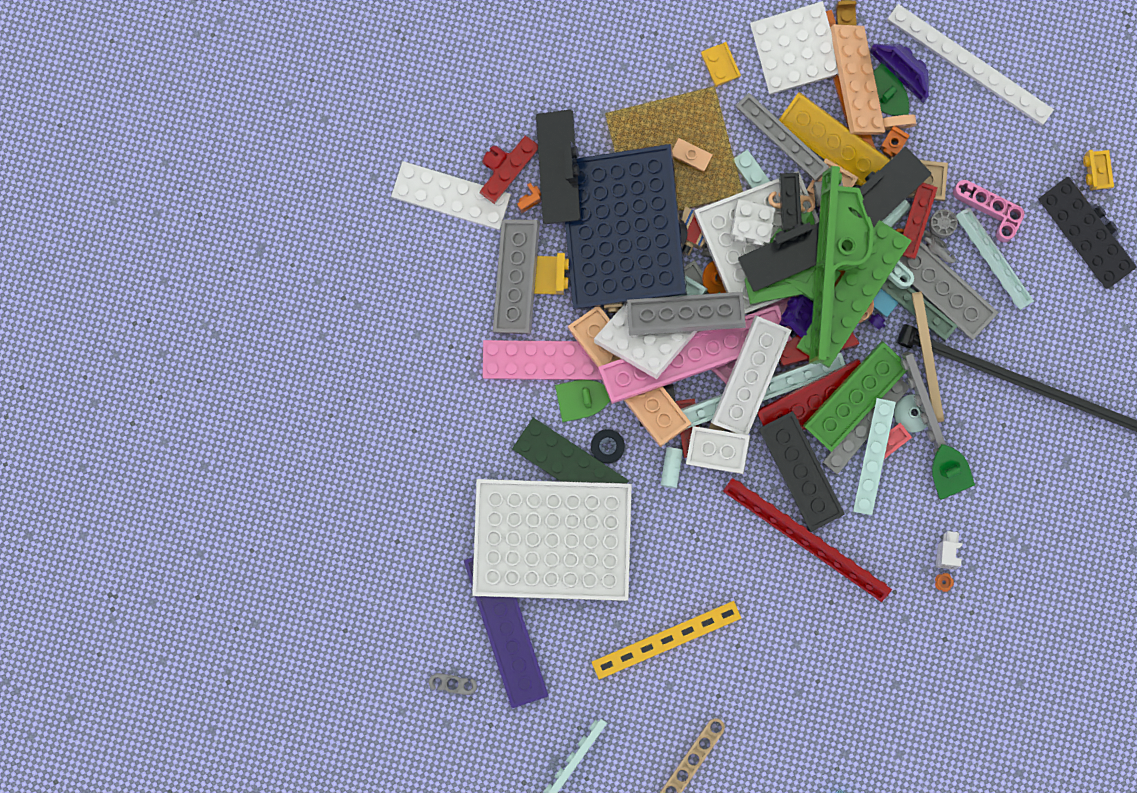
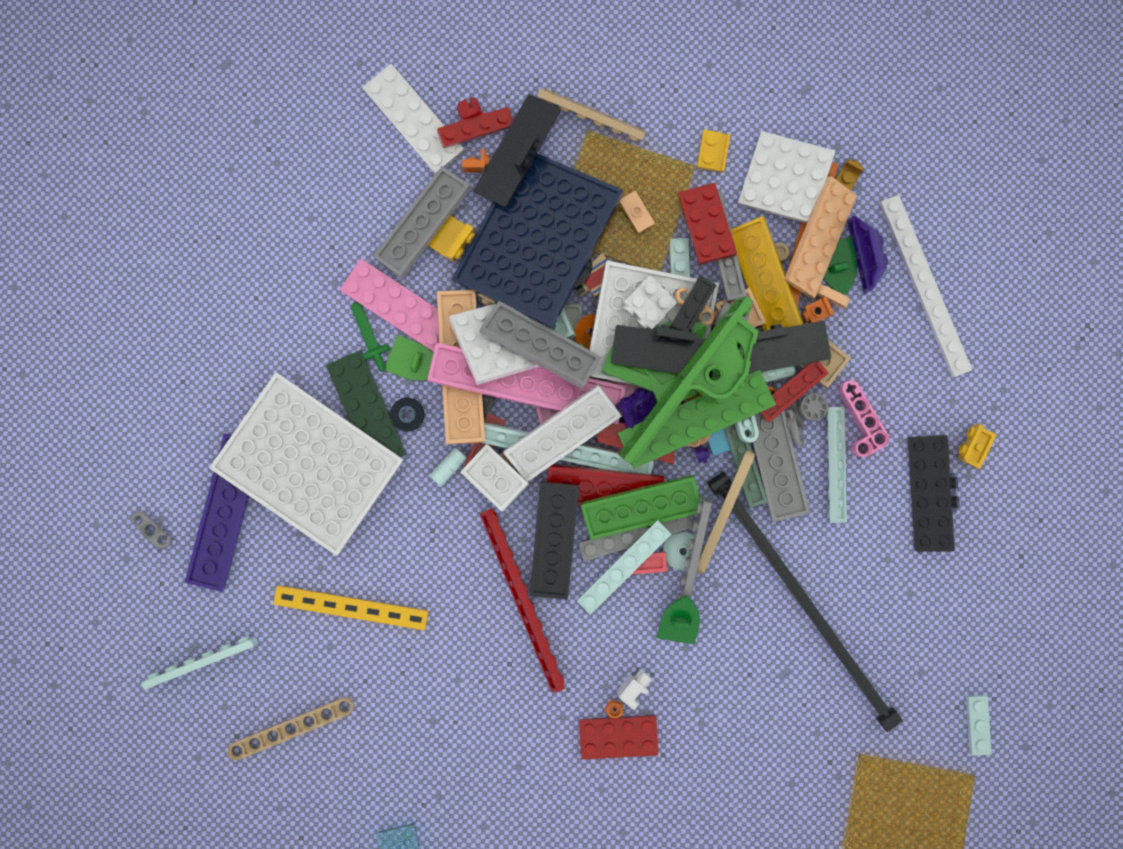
camera: 30 degrees right, 5 degrees up
(532, 402) = (374, 349): none -> green sword
(607, 96) = (600, 118): none -> tan plate
(756, 127) = (707, 223): none -> red plate
(833, 110) = (783, 251): none -> tan tile
(963, 603) = (618, 737): none -> red plate

